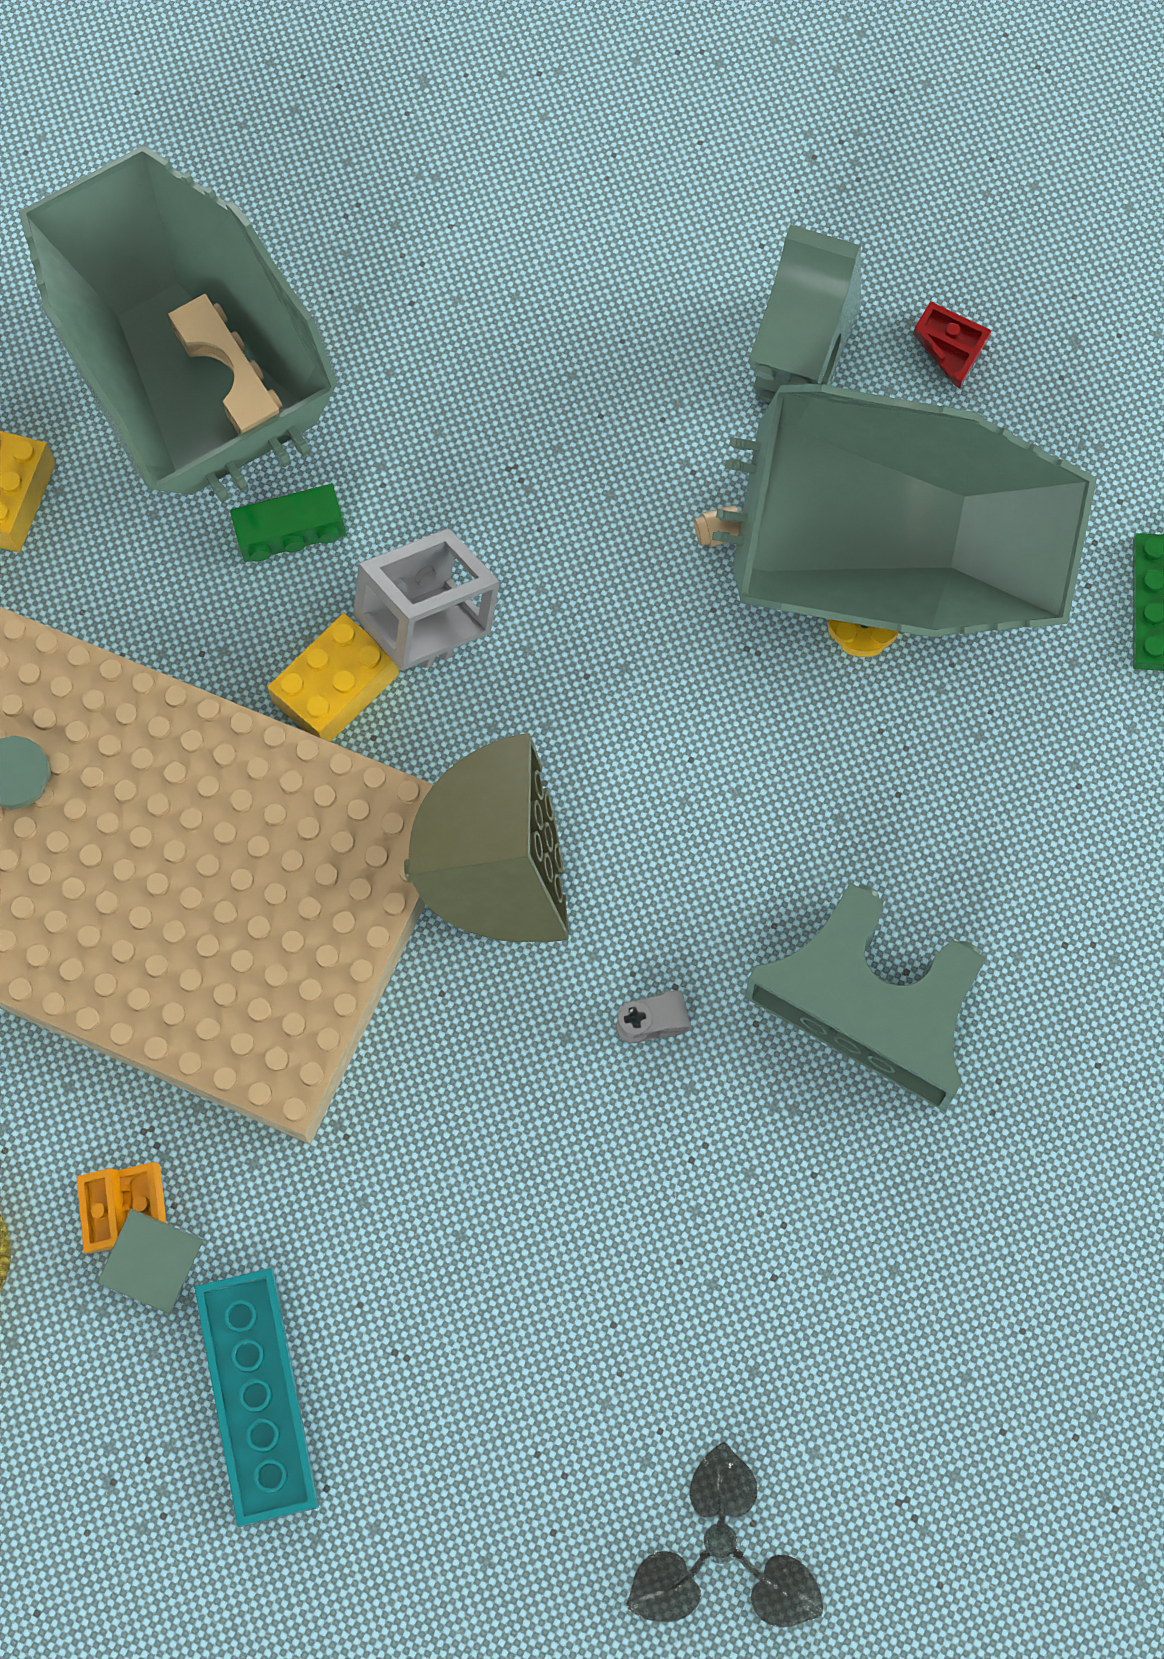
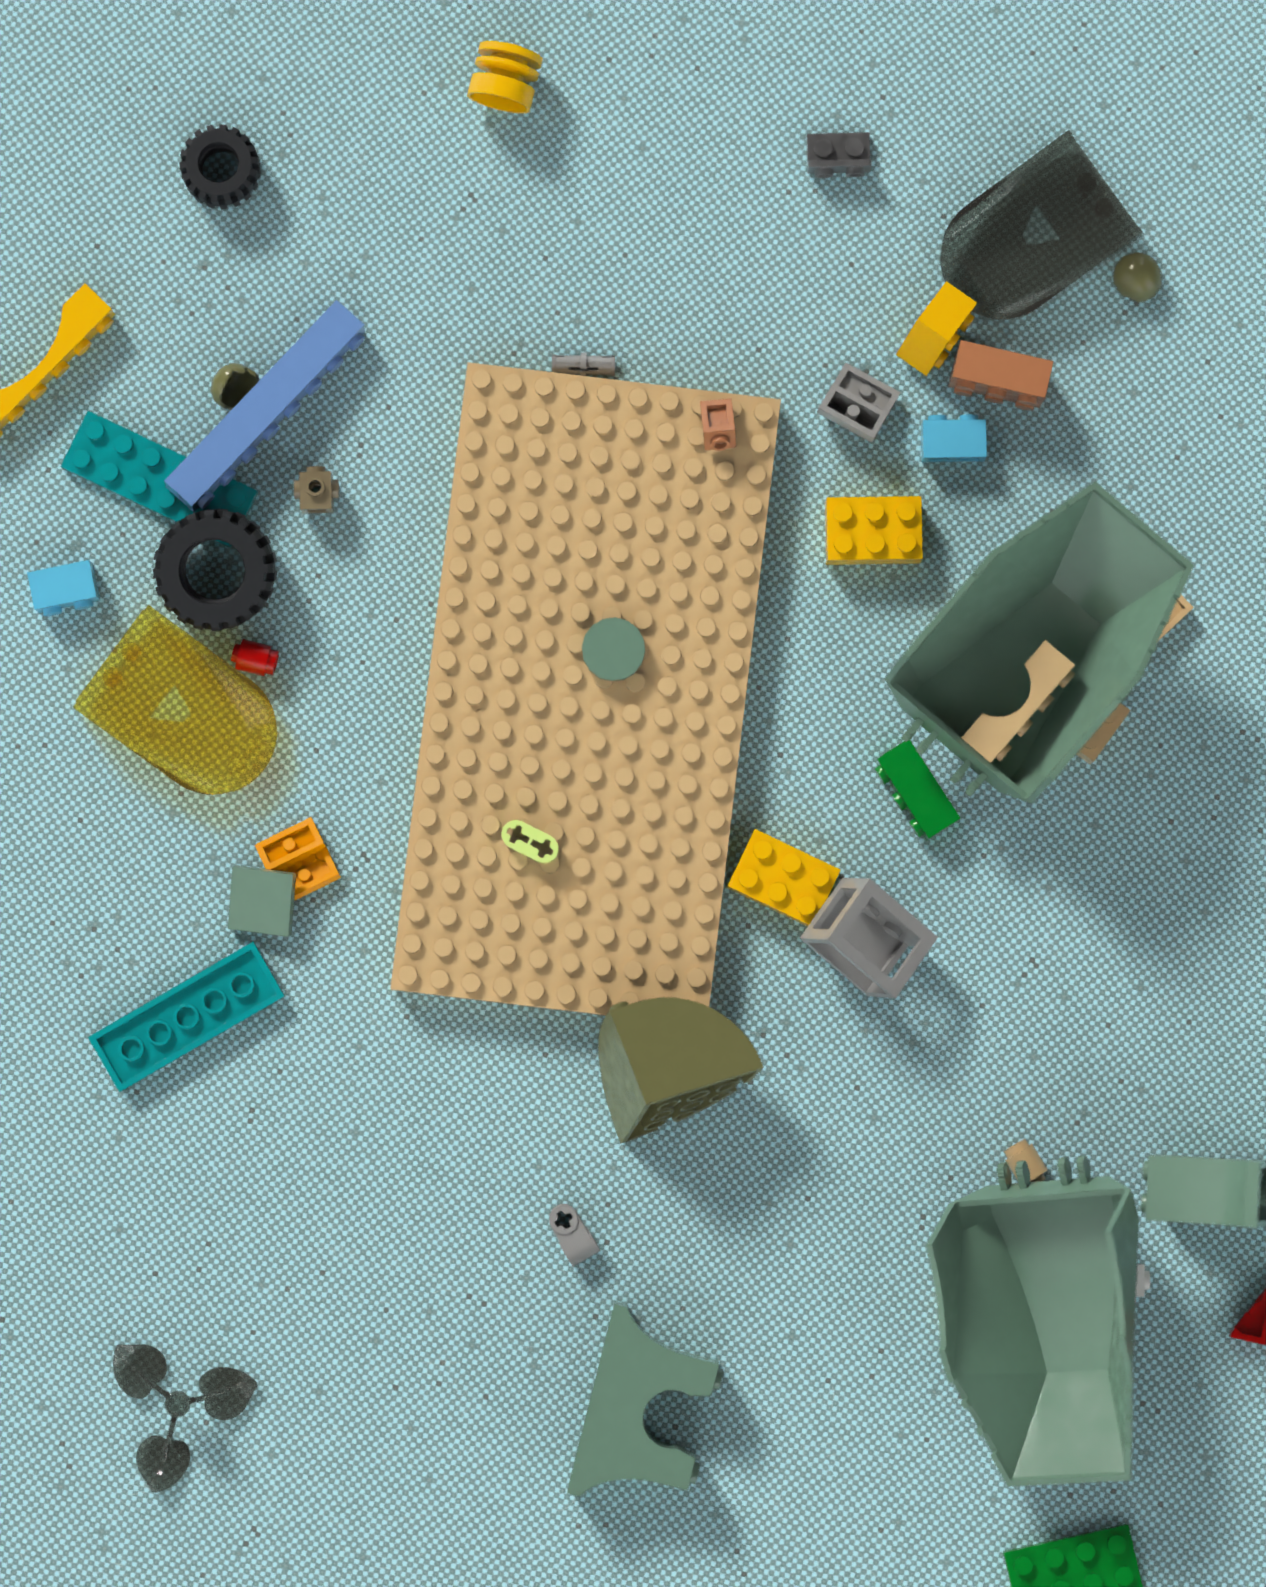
camera: 70 degrees right, 15 degrees up
(196, 930) = (526, 848): none -> yellowish green beam

